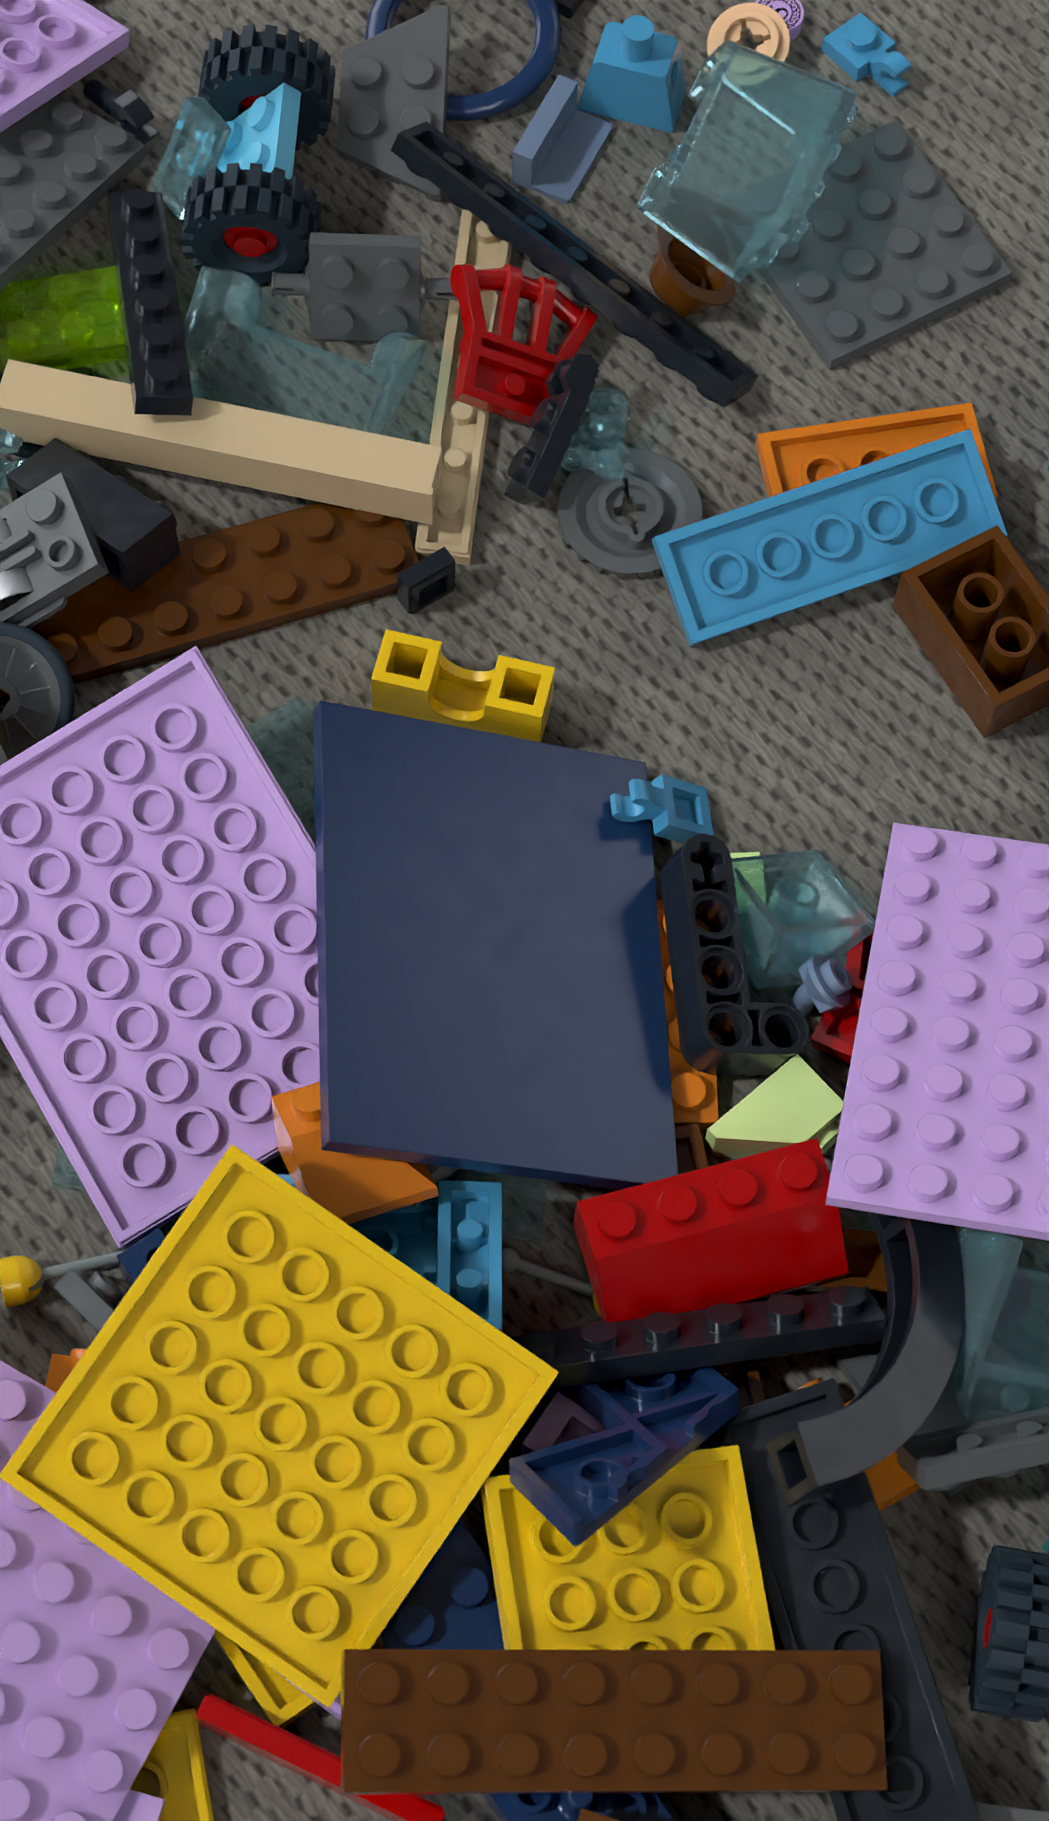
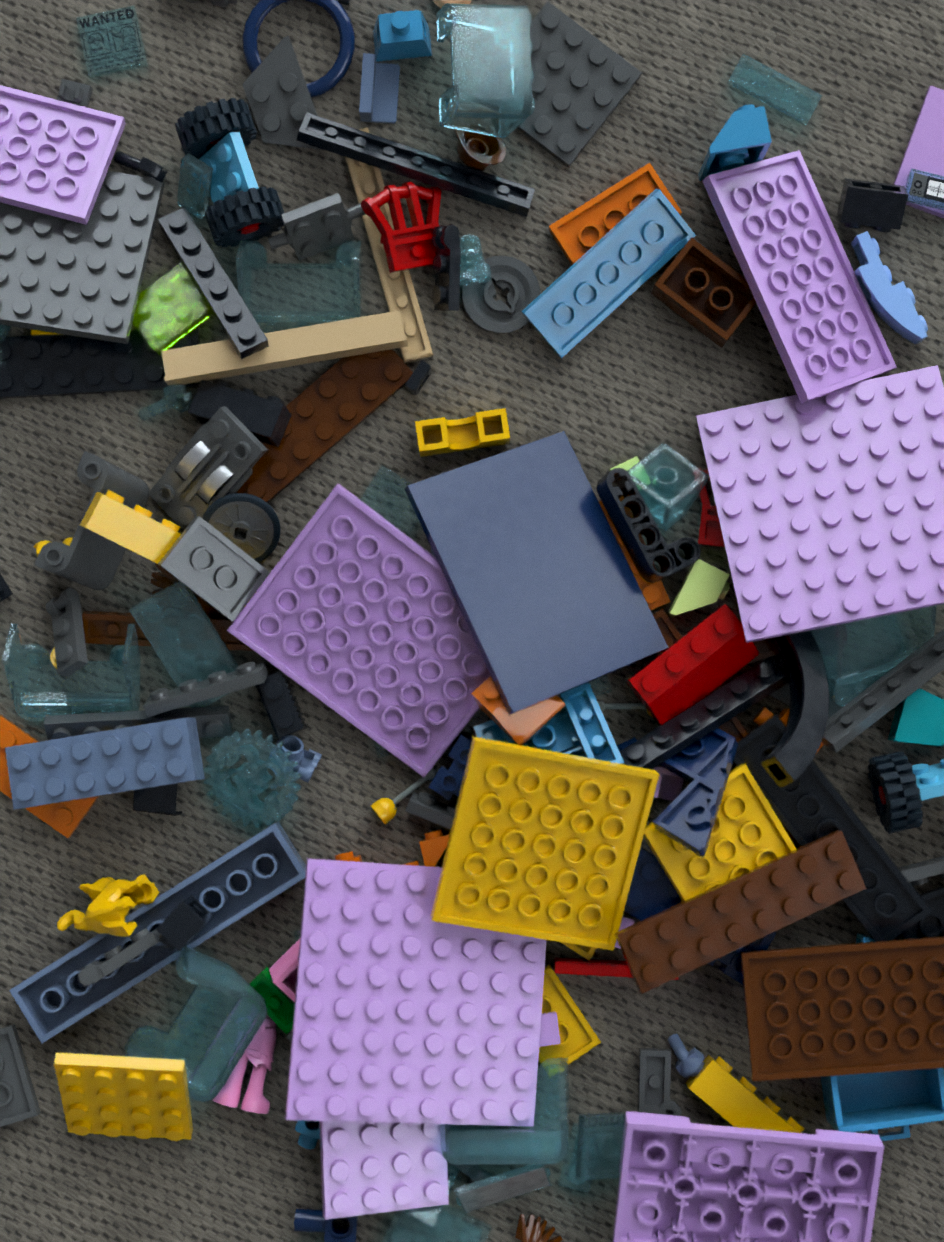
camera: 20 degrees left, 20 degrees up
(673, 805) = (588, 451): dark azure plate -> none
(824, 986) = (696, 517): sand blue plate -> none

